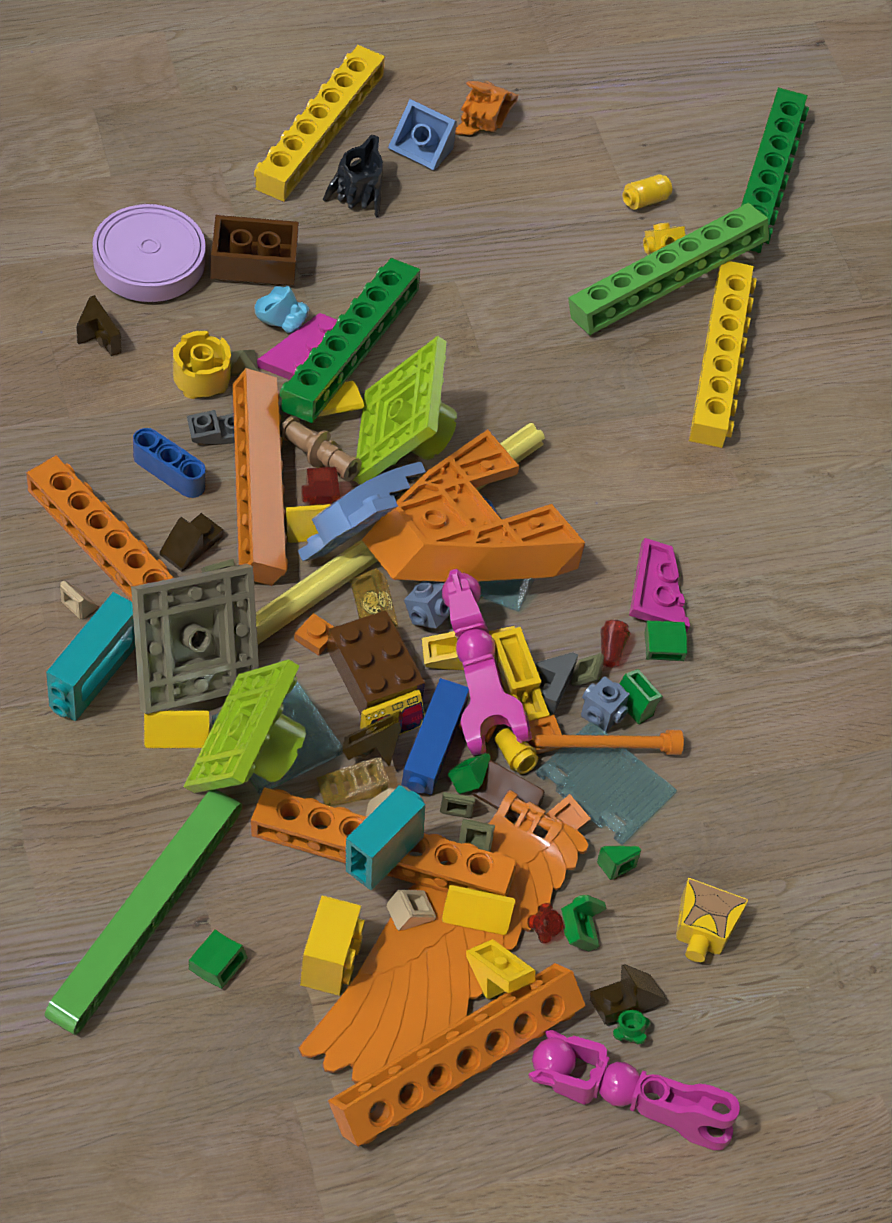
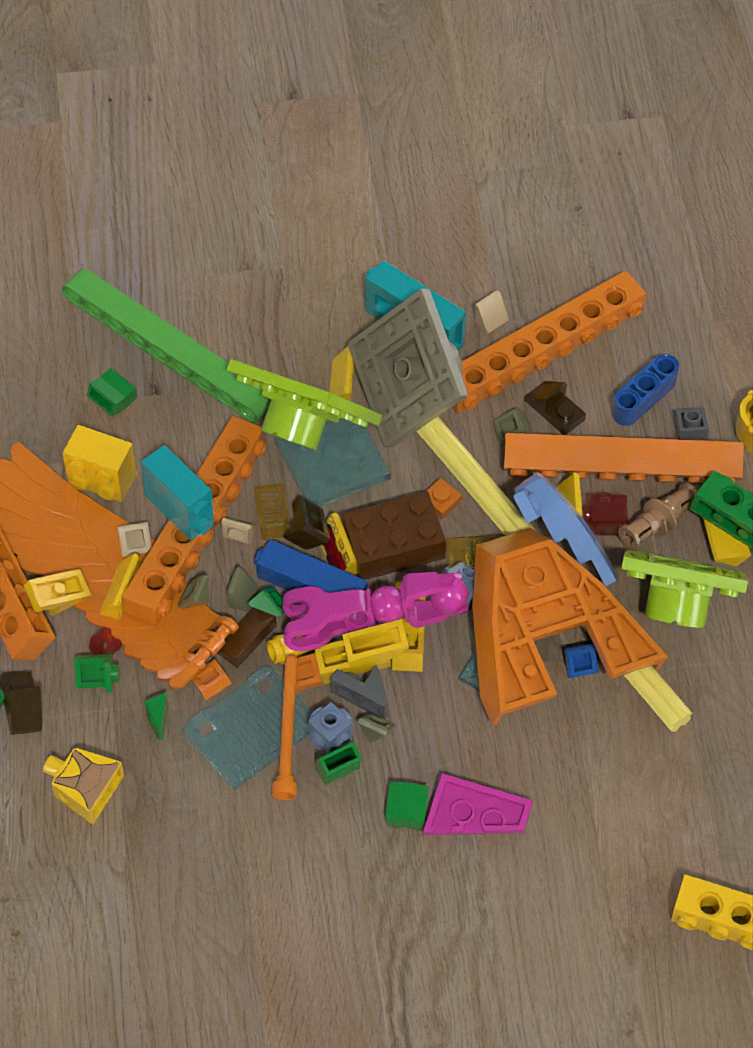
camera: 105 degrees right, 5 degrees up
(614, 641) = (409, 754): clear red cone -> none

